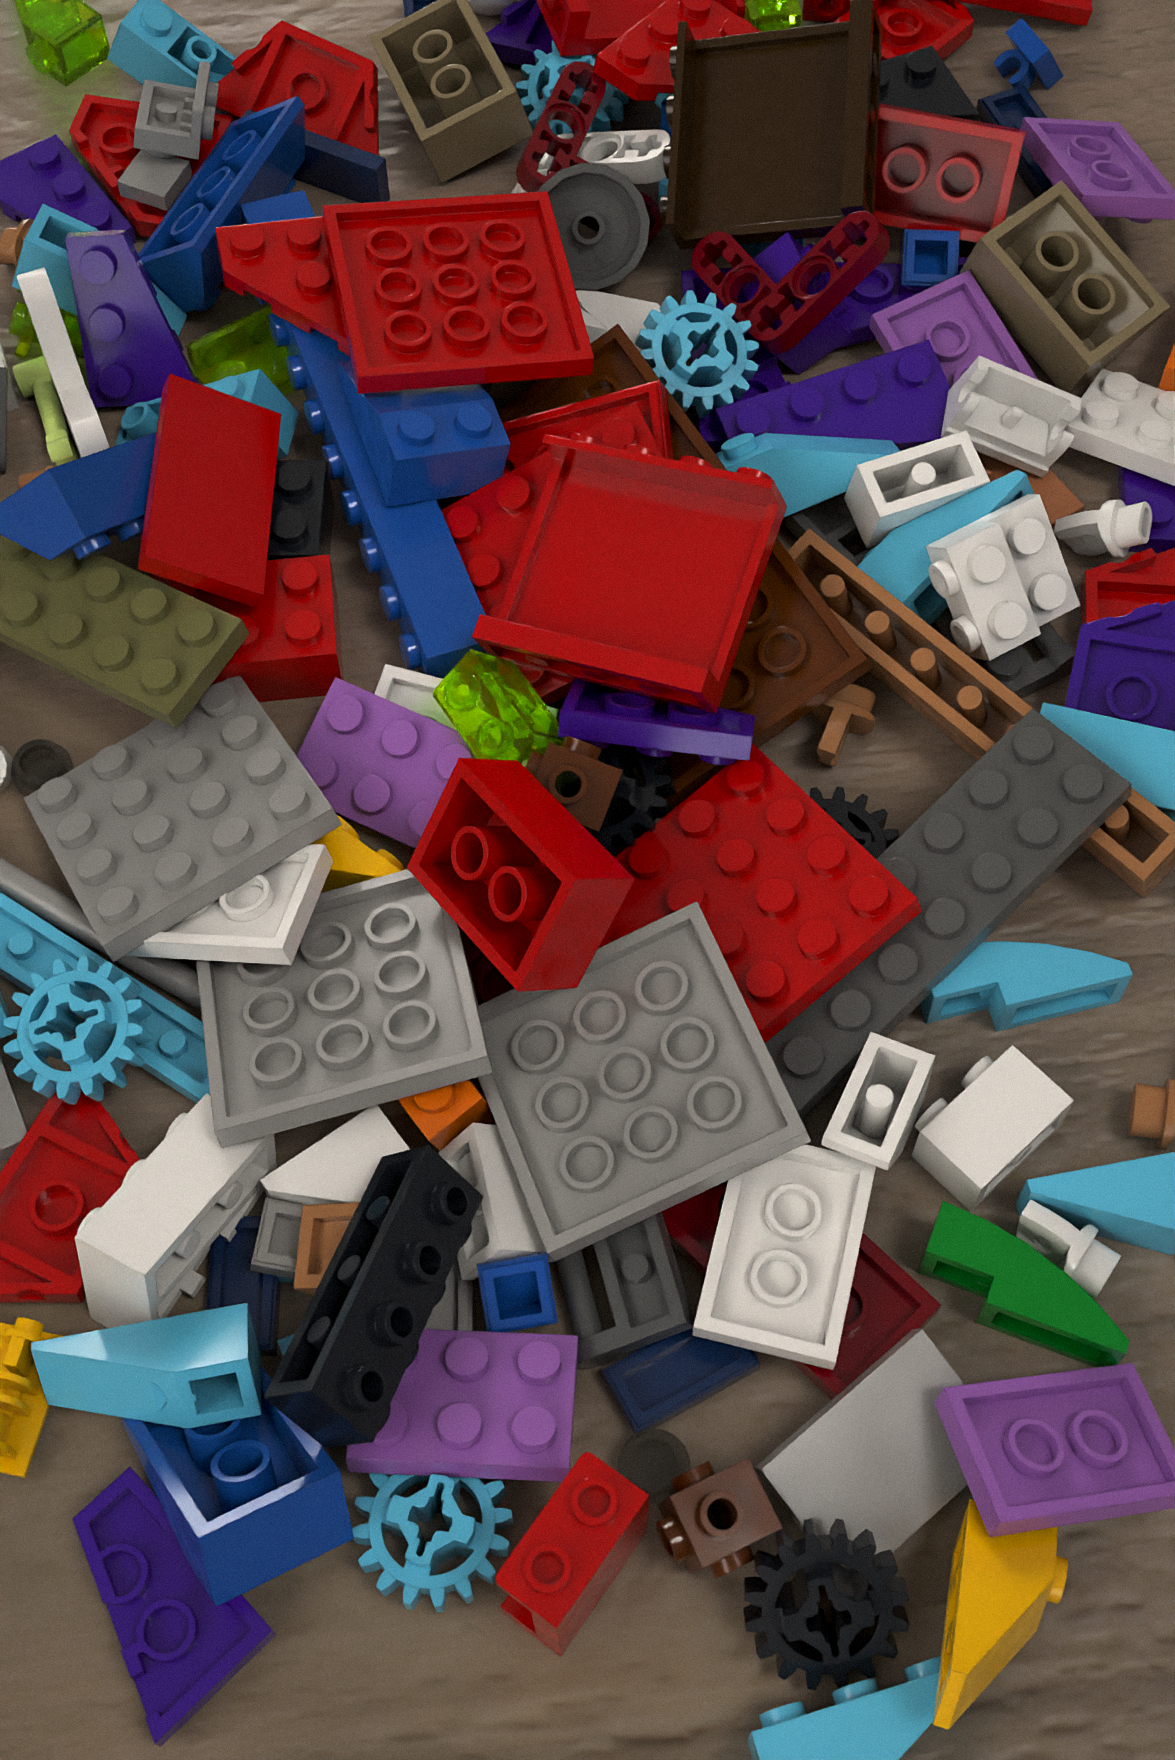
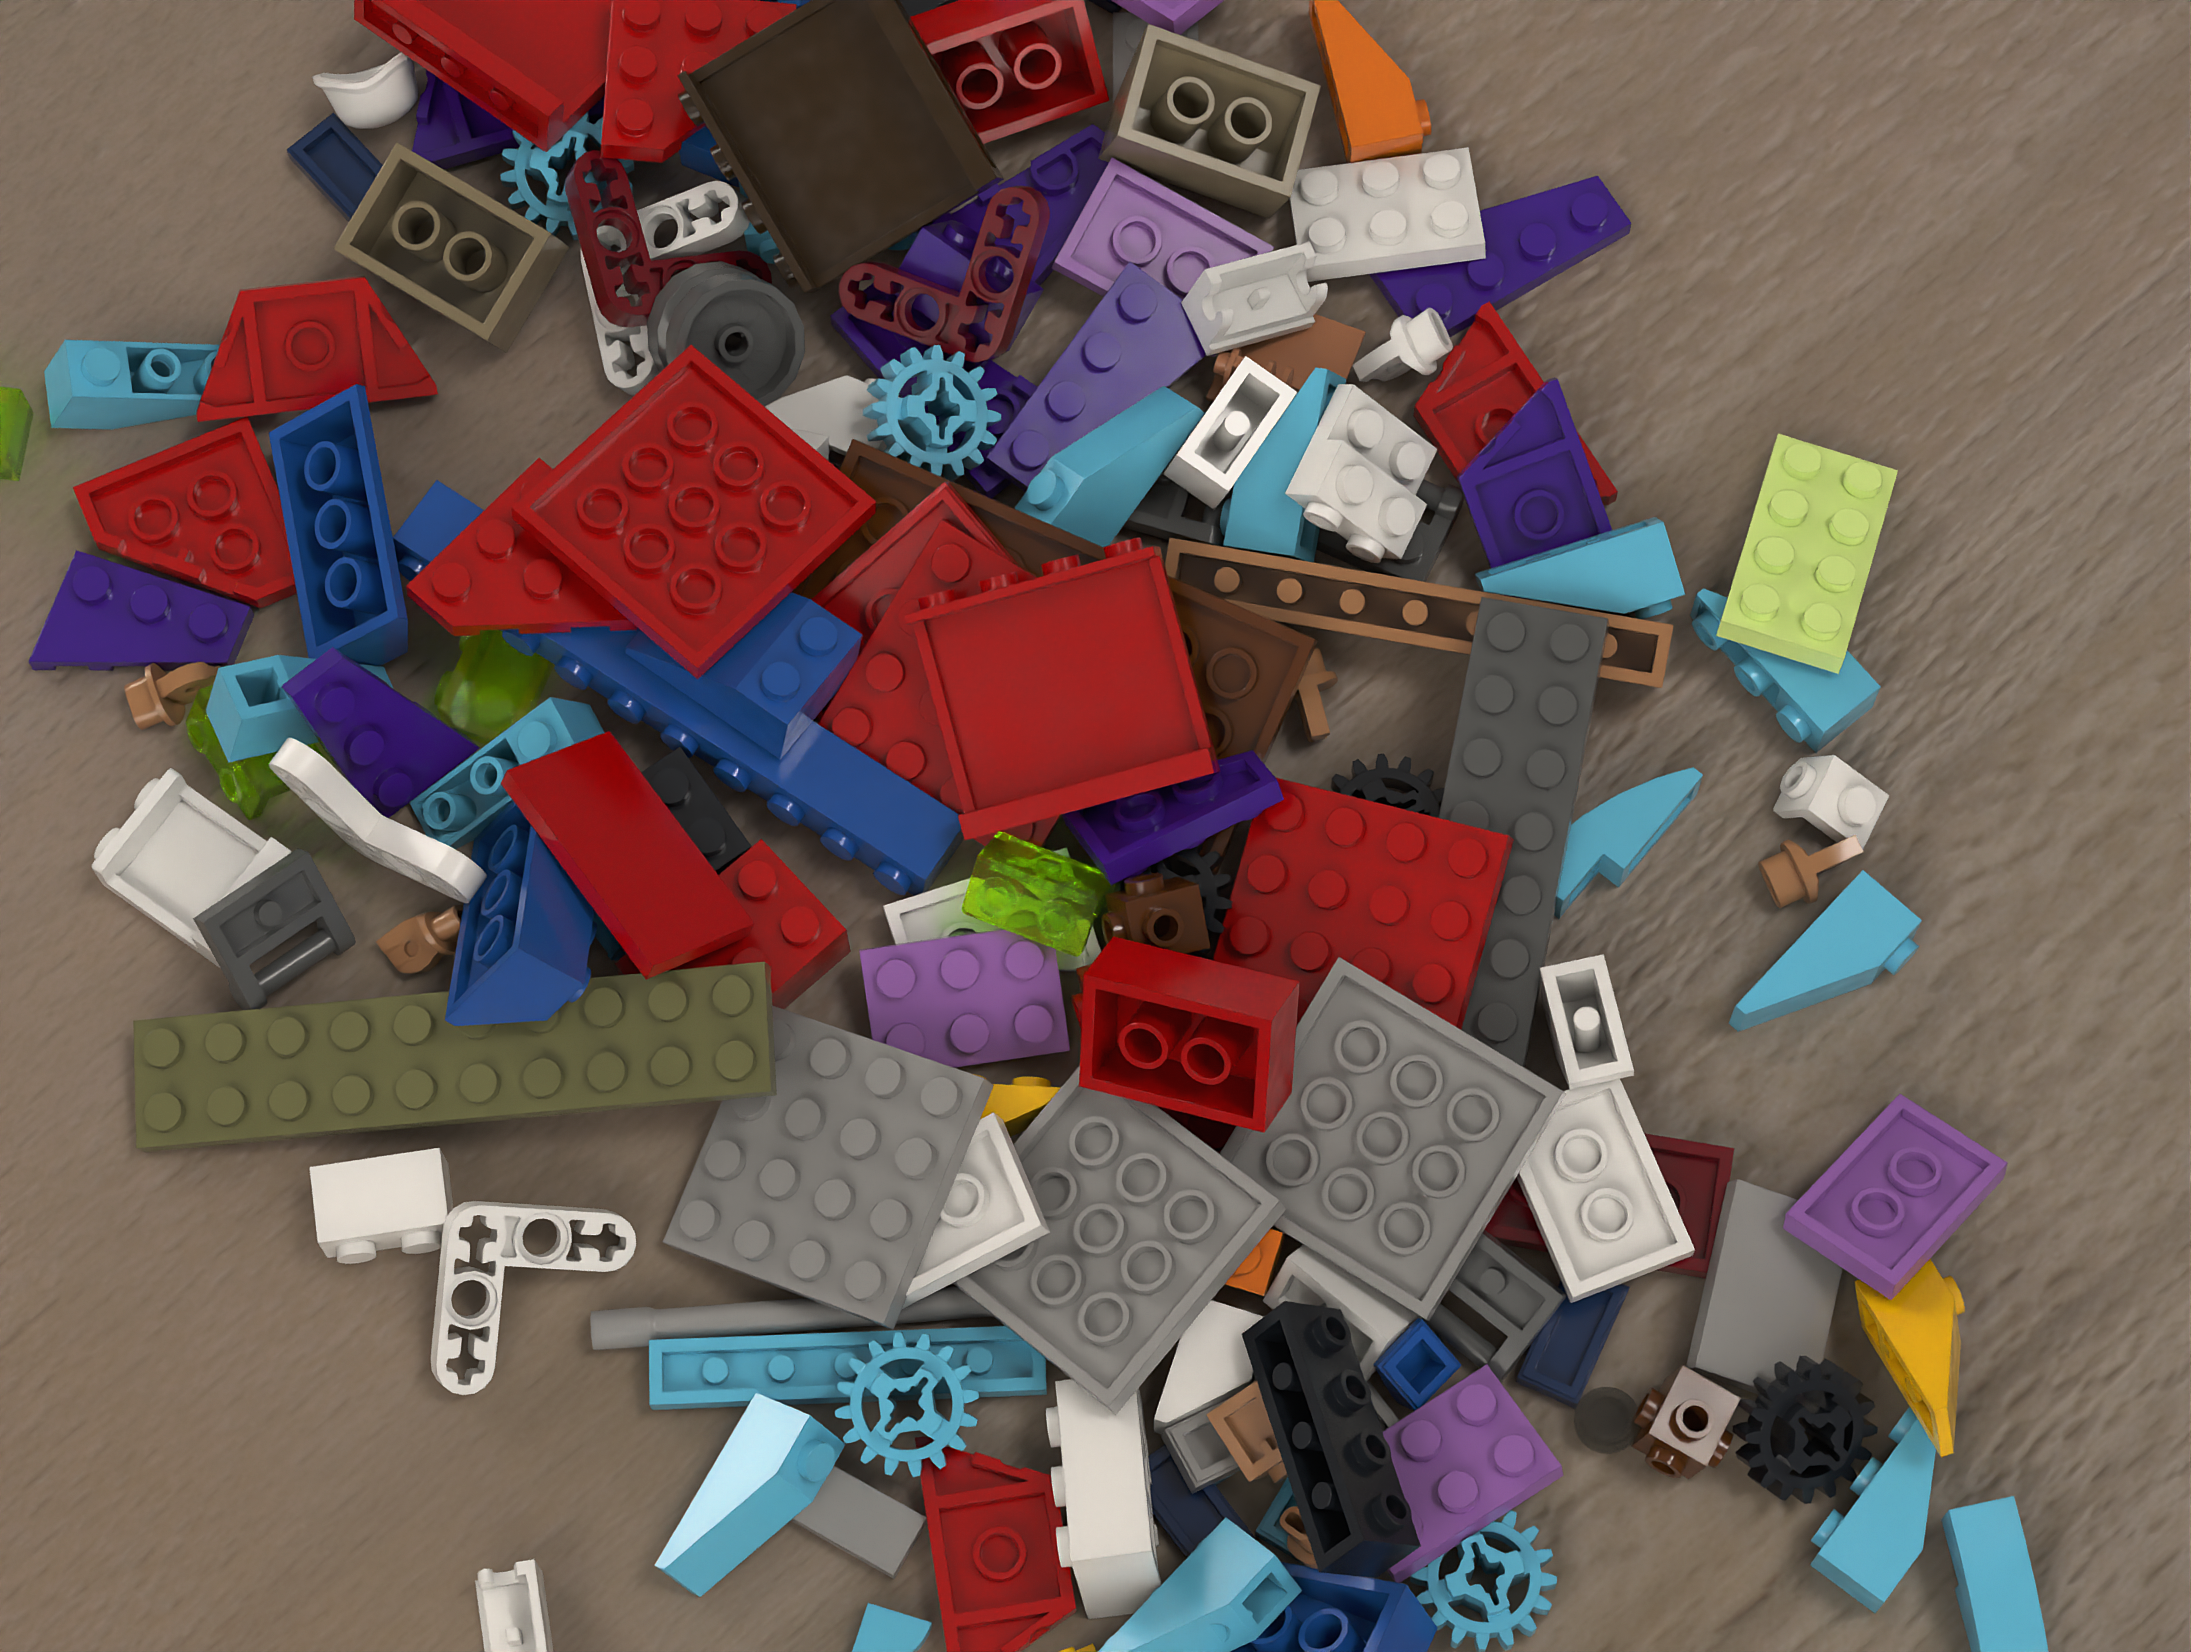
camera: 35 degrees left, 10 degrees up
(35, 380) = (305, 829): yellowish green brick -> none
(38, 763) = (651, 1204): clear smoke plate -> none
(155, 179) = (241, 544): light grey tile -> none
(176, 117) = (217, 463): light grey bracket -> none
(342, 169) = (398, 406): dark blue tile -> none
(573, 1552) = (1610, 1523): red panel -> none
(928, 257) = (1056, 157): blue slope -> none
(989, 1126) = (1673, 977): white brick -> none
(1020, 1289) = (1780, 1094): green slope -> none
(1067, 1247) = (1811, 1036): white piece -> none

